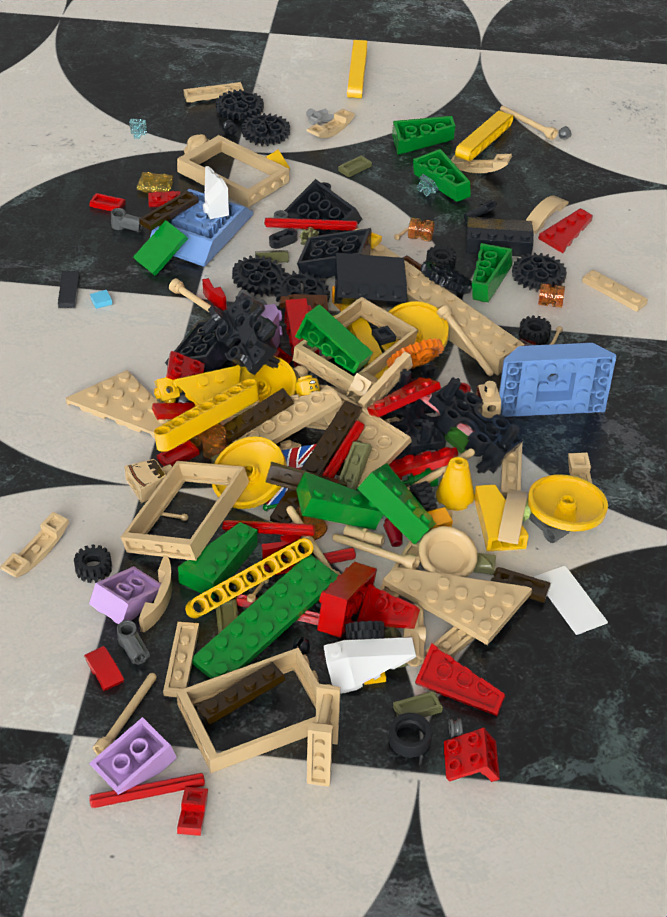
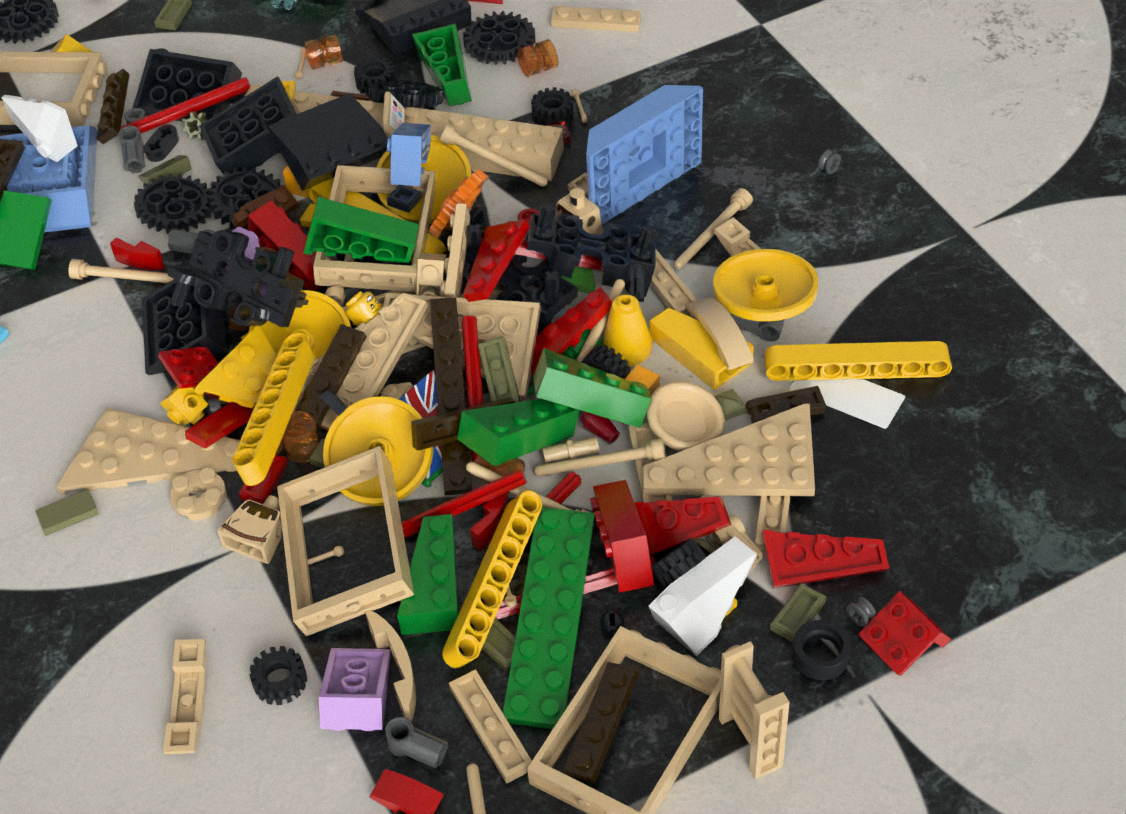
camera: 30 degrees left, 5 degrees up
(60, 415) = (67, 512): none -> olive tile
(135, 435) = (202, 480): none -> tan plate
(243, 429) = (333, 402): none -> black tile
(262, 234) = (132, 149): none -> dark grey piece
(271, 205) = (112, 106): none -> dark brown plate
(407, 307) = (409, 149): none -> medium blue wedge
(420, 286) = (393, 114): none -> slope
(592, 583) = (857, 361): none -> yellow beam
(606, 446) = (739, 201): none -> tan piece

